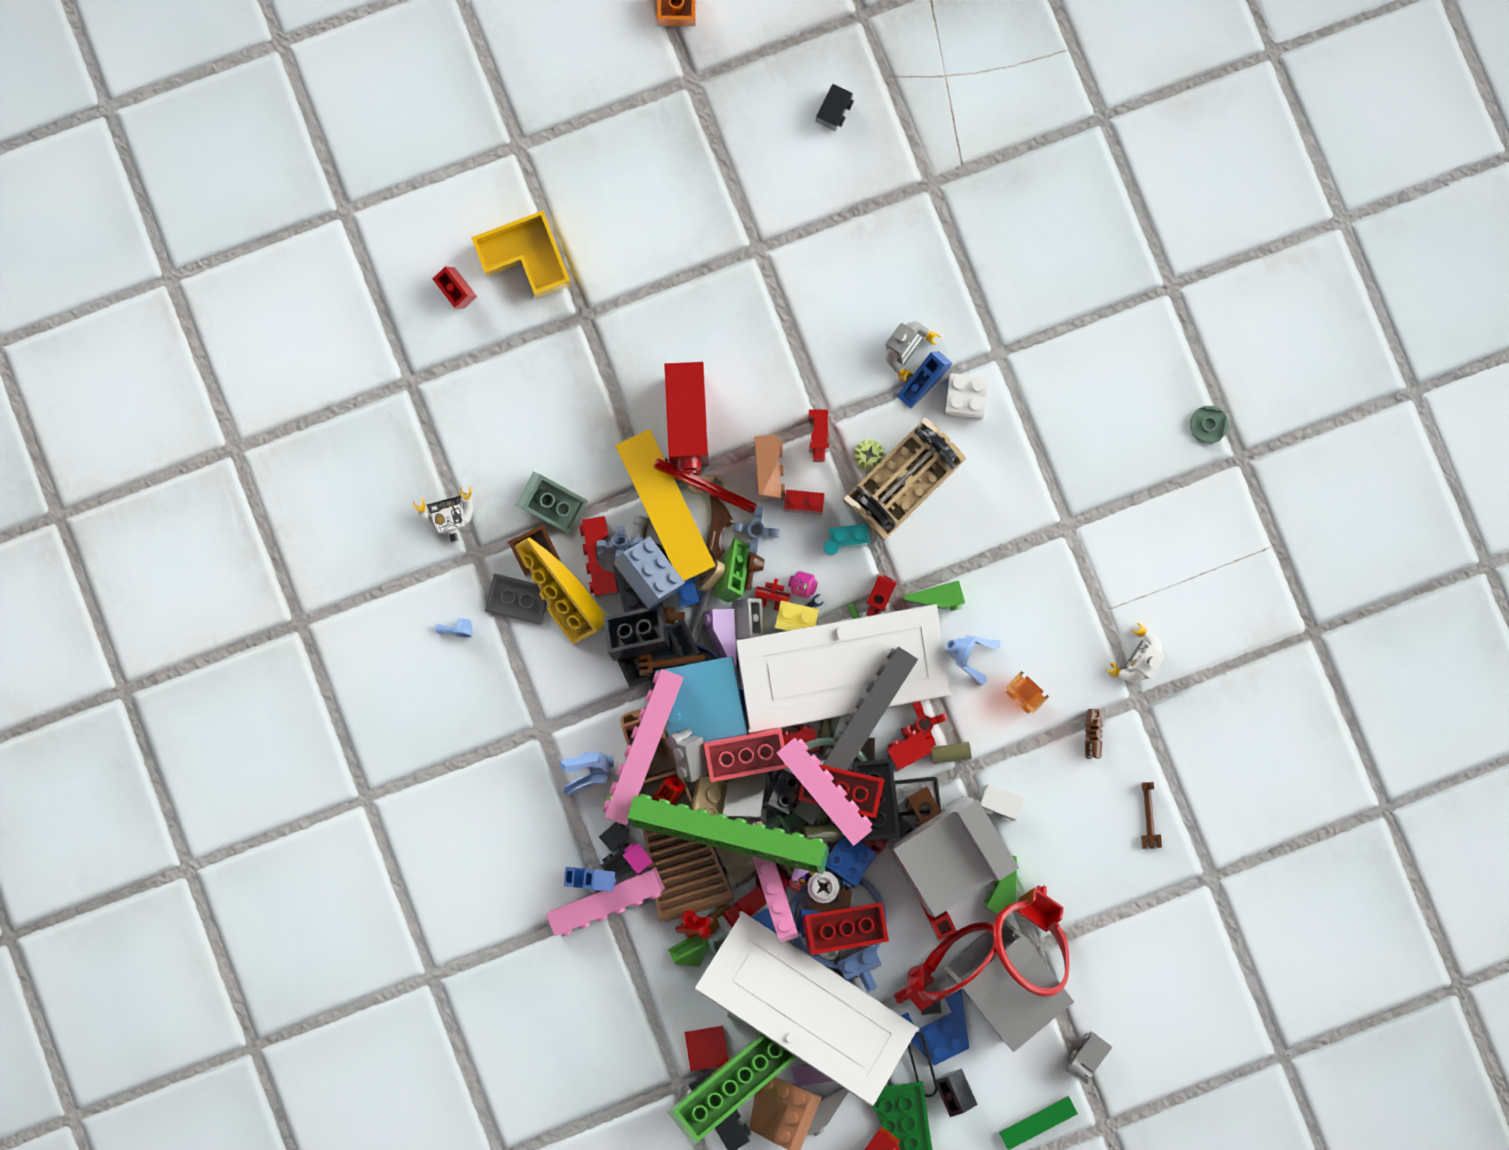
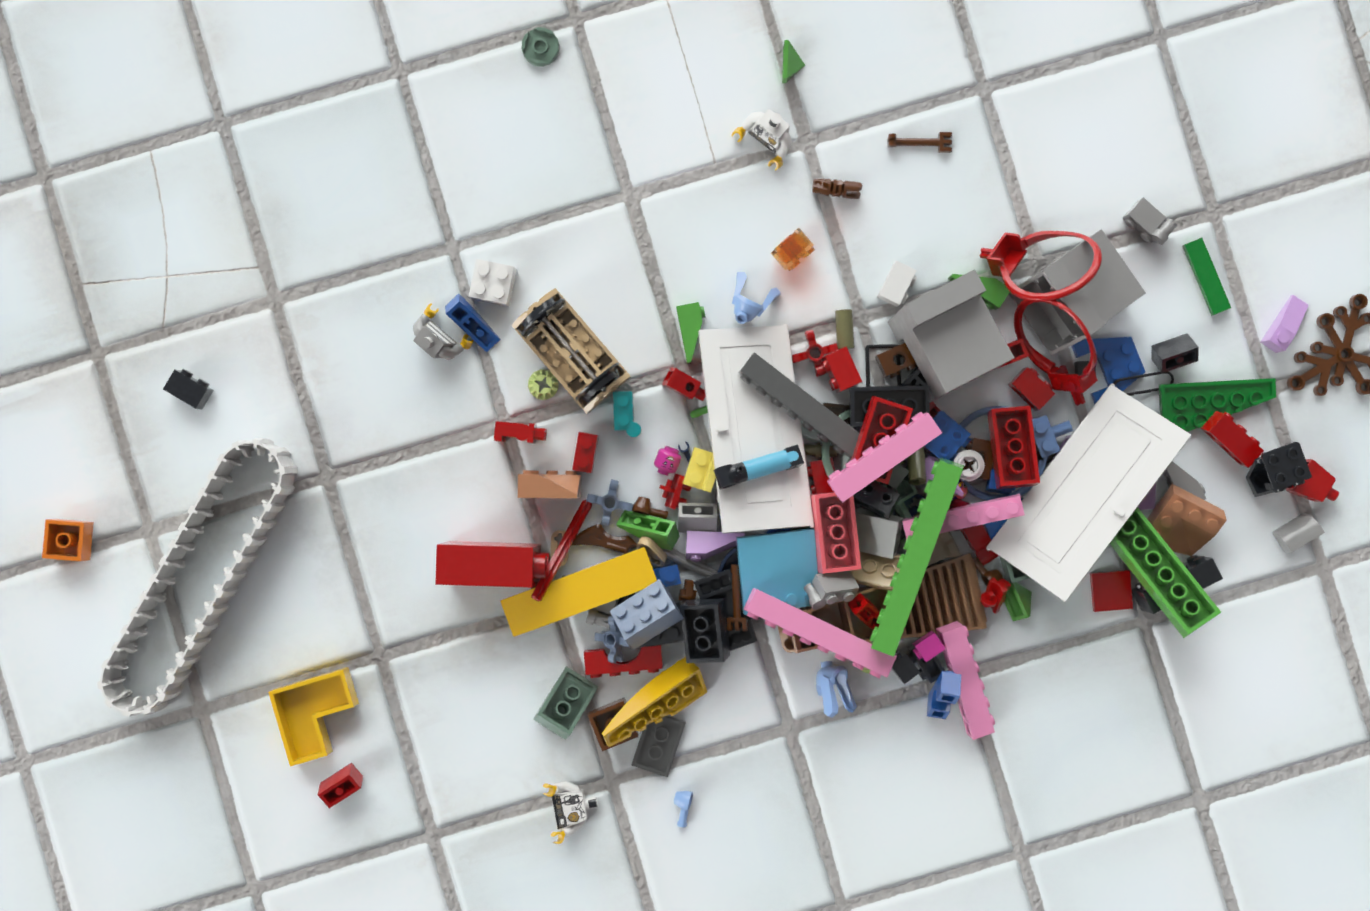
camera: 85 degrees left, 5 degrees up
(647, 99) = (111, 676): none -> white piece
(794, 645) = (761, 466): none -> piece
(907, 948) = (1032, 388): none -> red brick
(1217, 677) = (791, 62): none -> bright green slope

